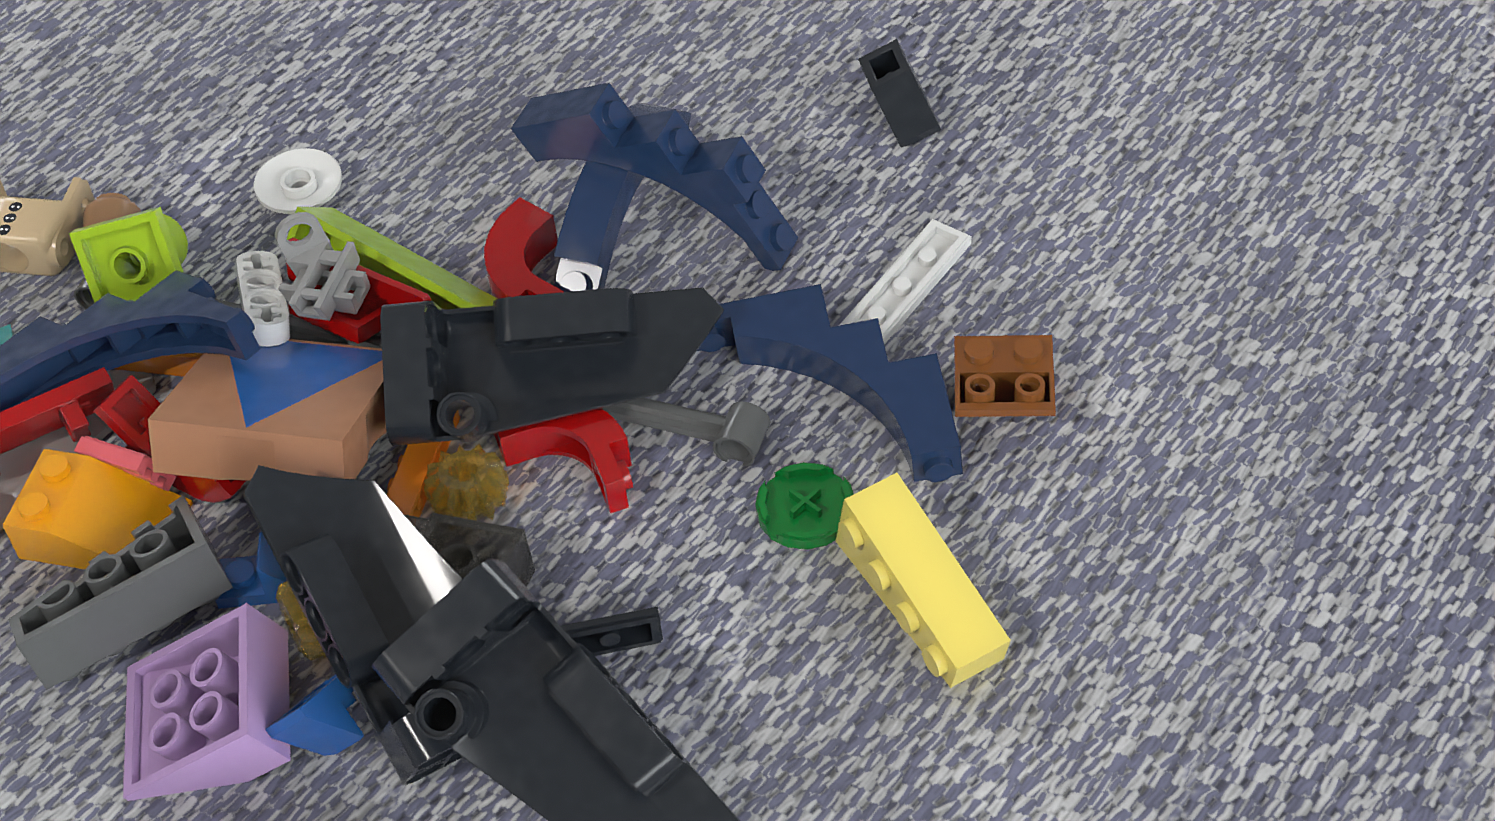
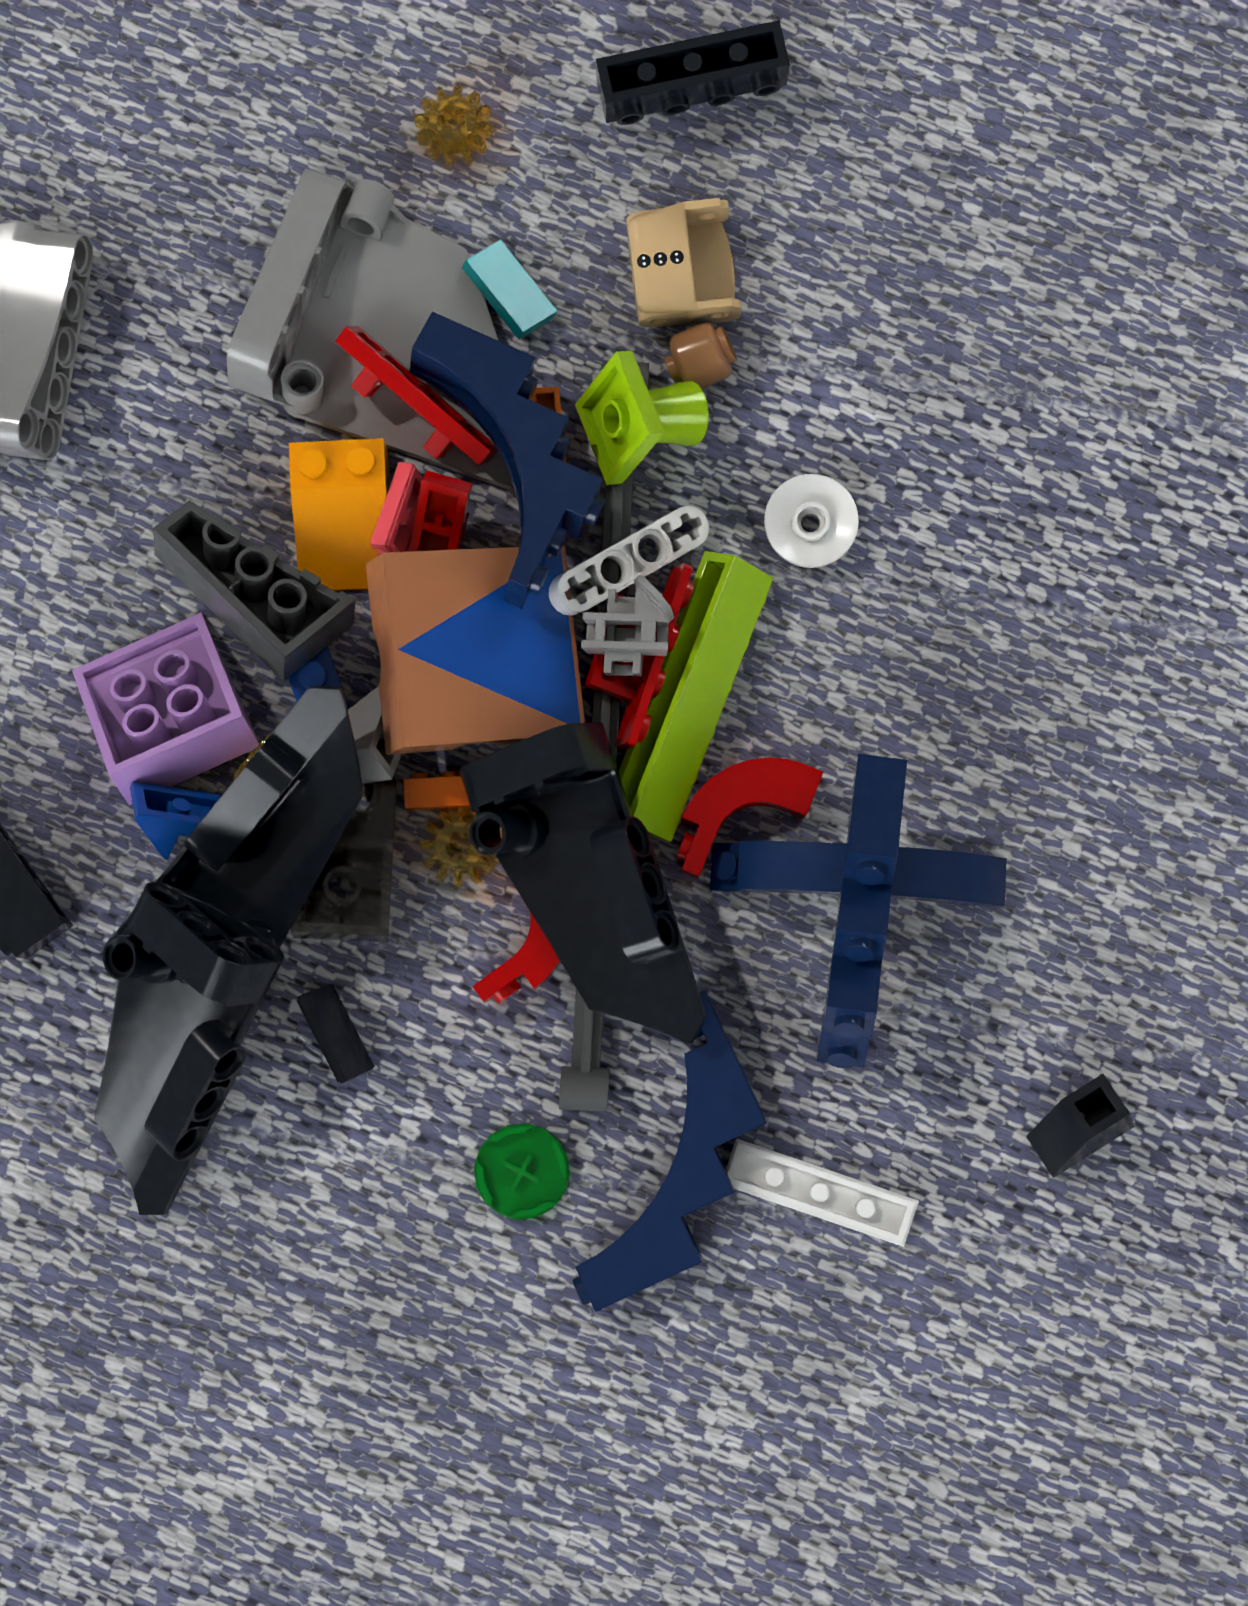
camera: 70 degrees right, 35 degrees up
(920, 581) = (438, 1309): light yellow wedge -> none
(1004, 376) = (691, 1332): dark orange slope -> none

